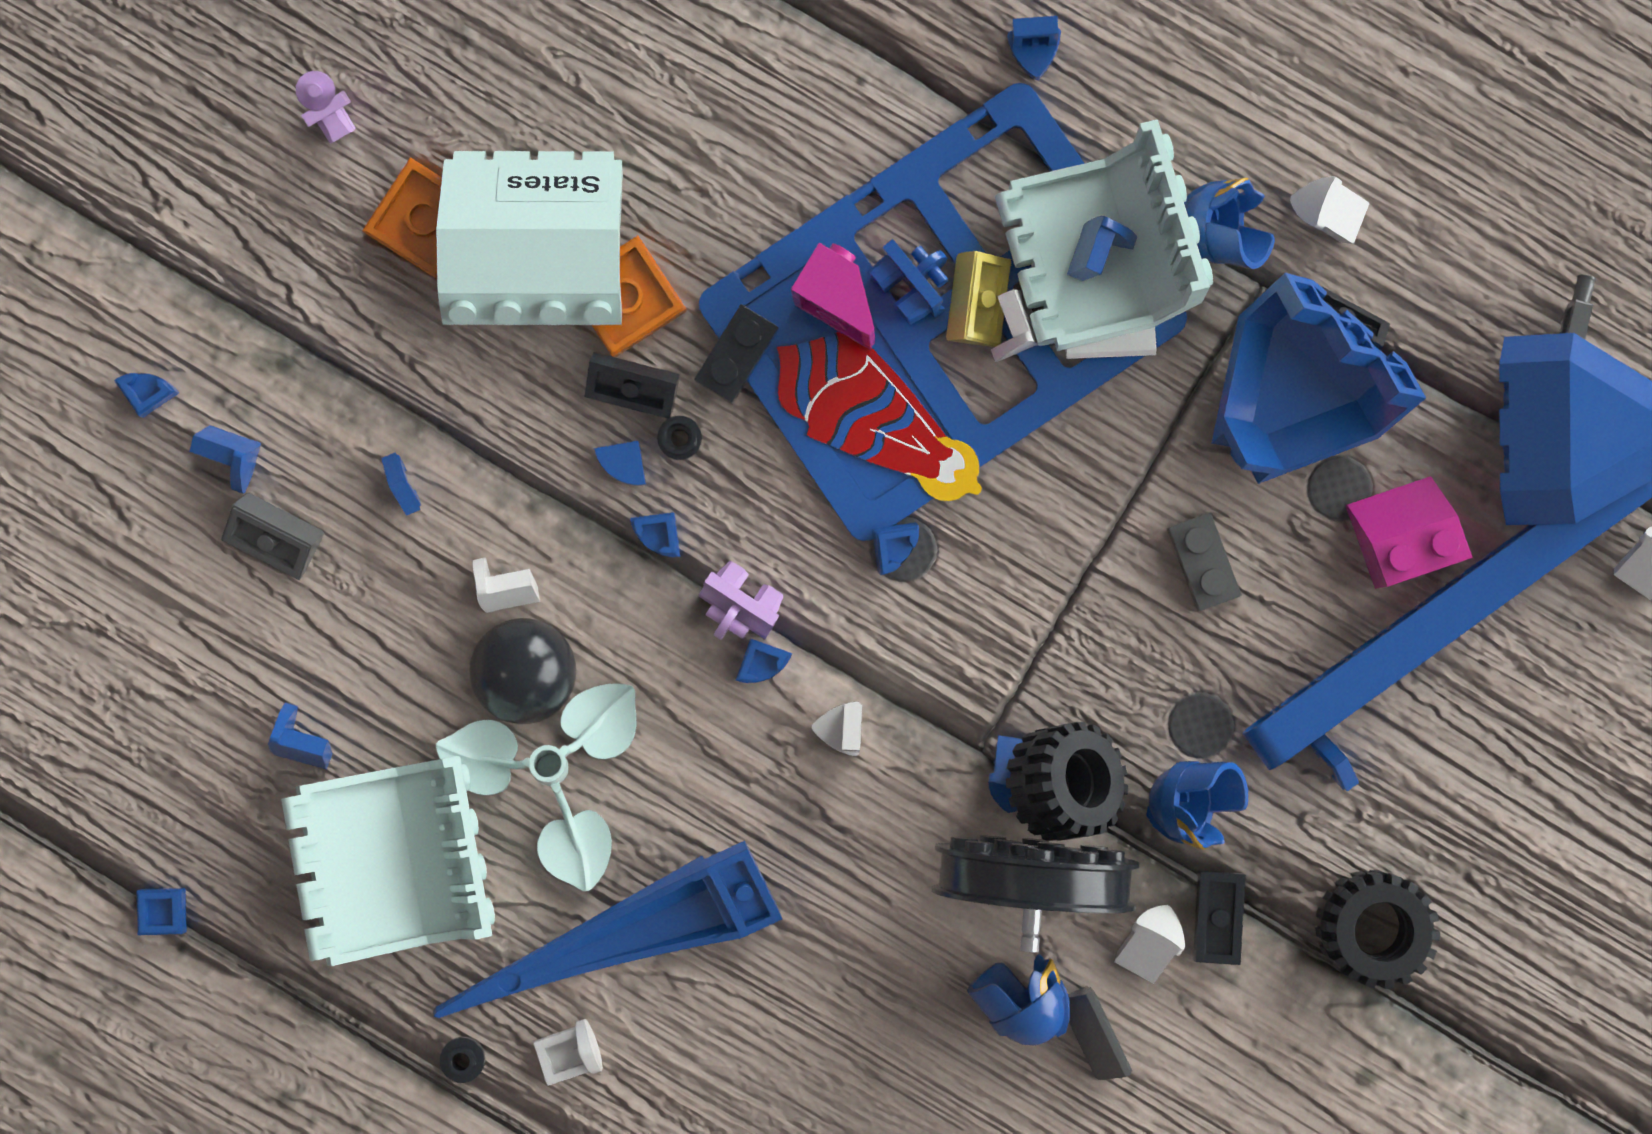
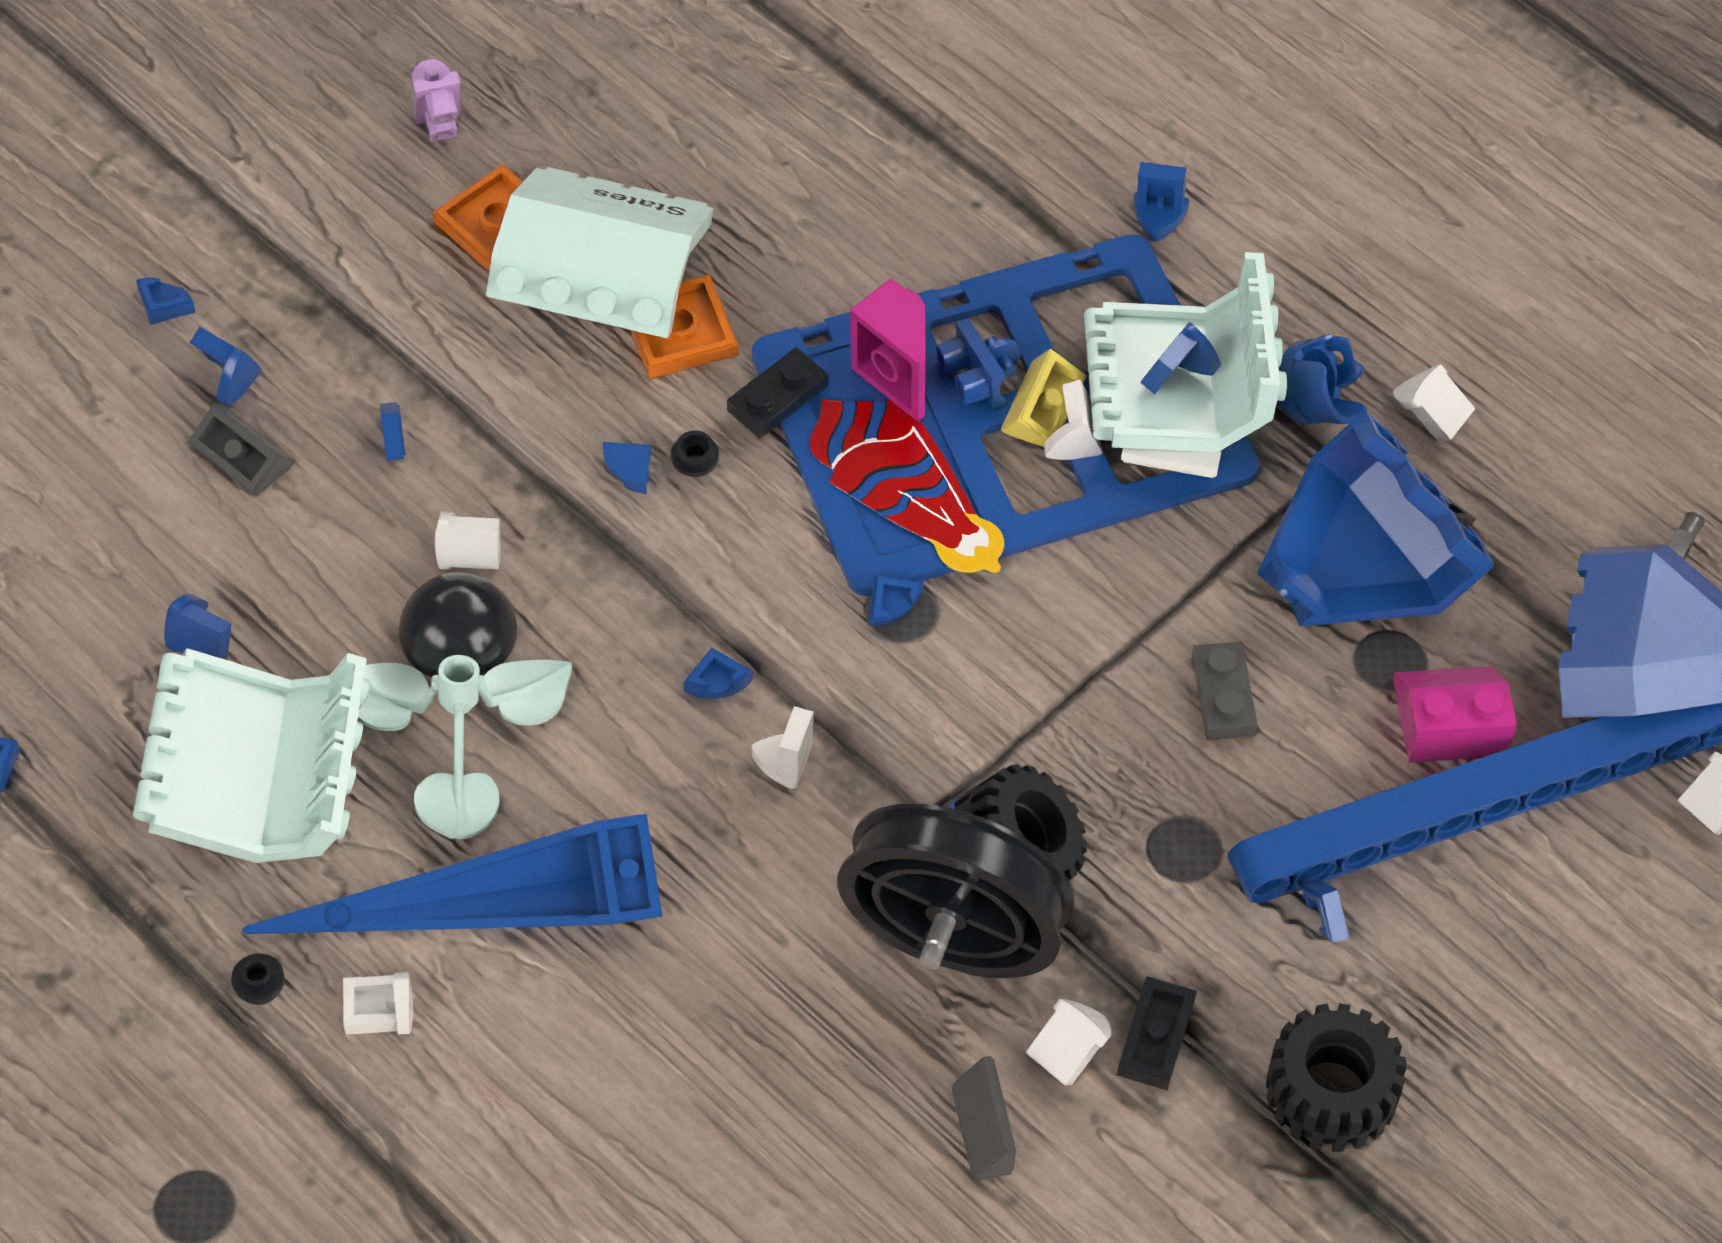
camera: 10 degrees right, 30 degrees down
(631, 385) = (660, 394): black plate -> none
(658, 533) = (644, 535): blue tile -> none
(734, 608) = (706, 610): lavender hips -> none
(1023, 1013) = (911, 1064): blue helmet -> none
(1187, 797) = (1161, 894): blue helmet -> none

